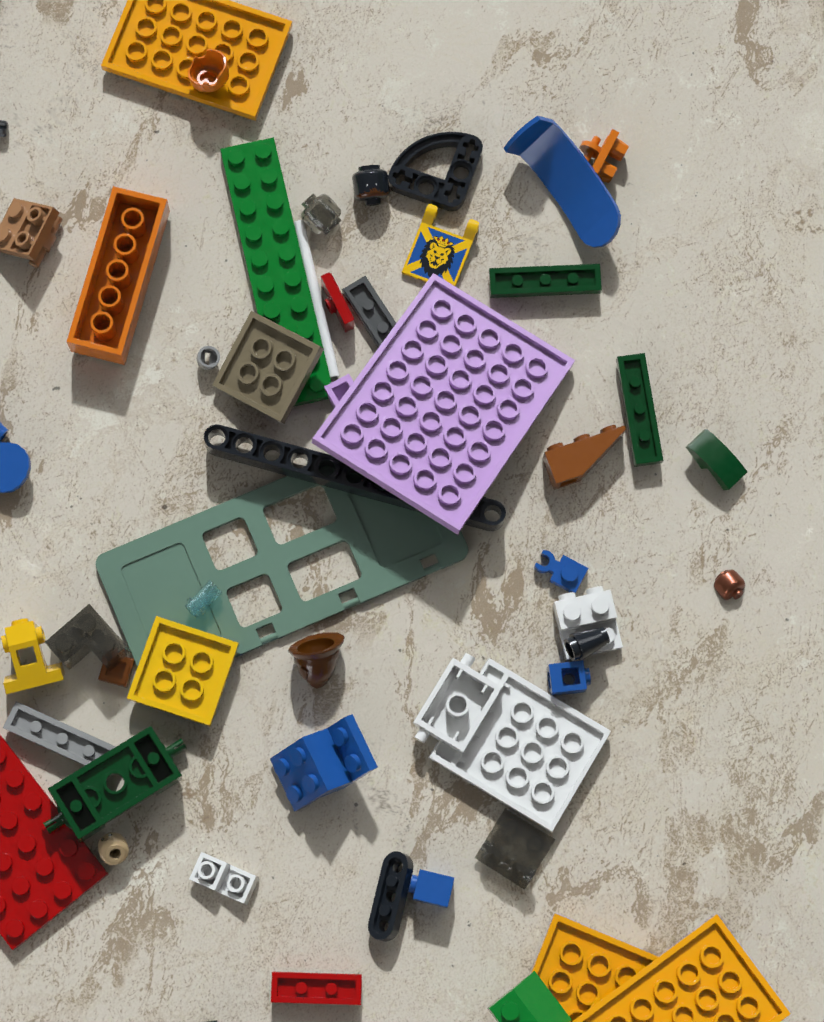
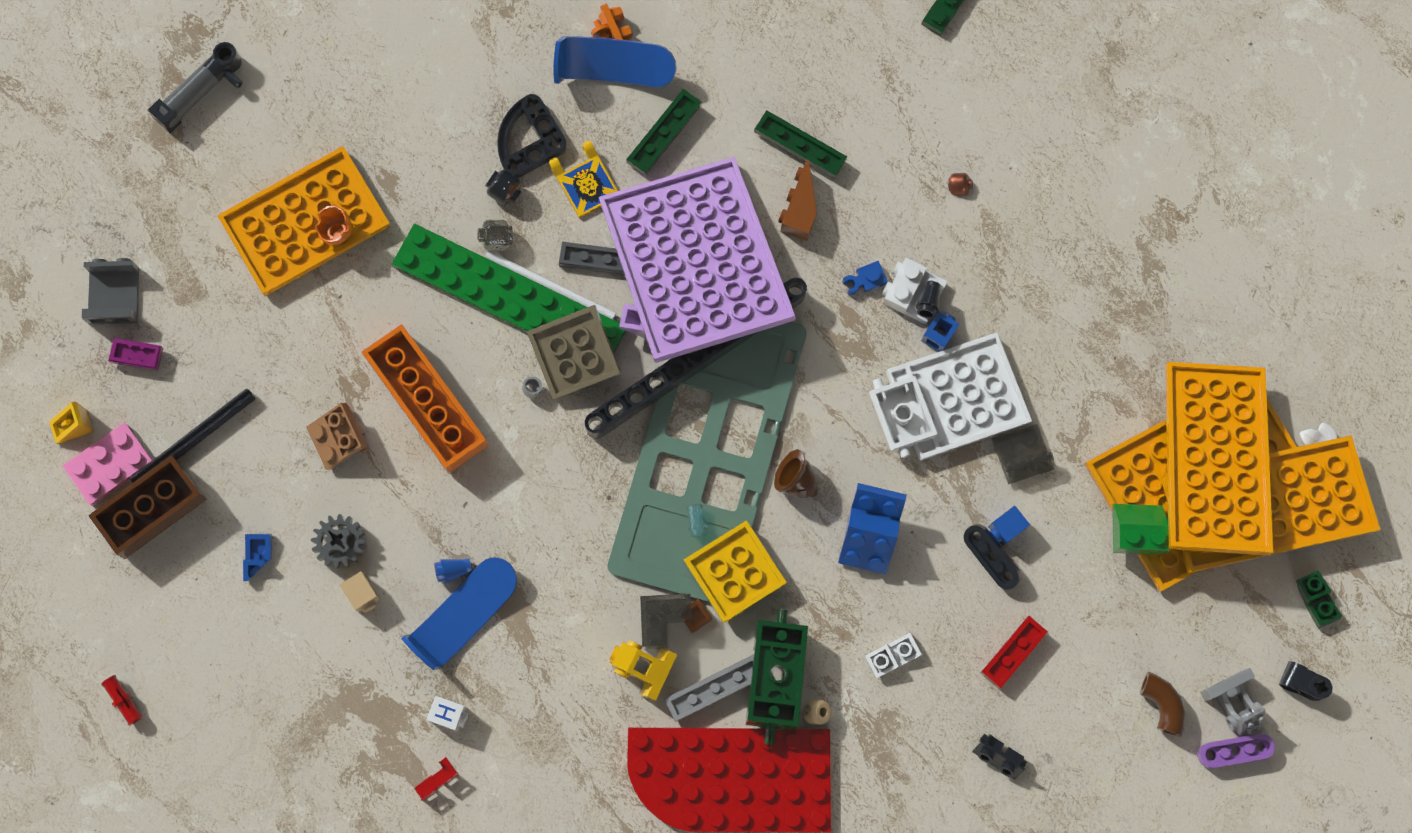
camera: 50 degrees left, 0 degrees up
(336, 303) = (565, 274): red plate -> none
(717, 458) = (869, 123): dark green slope -> none

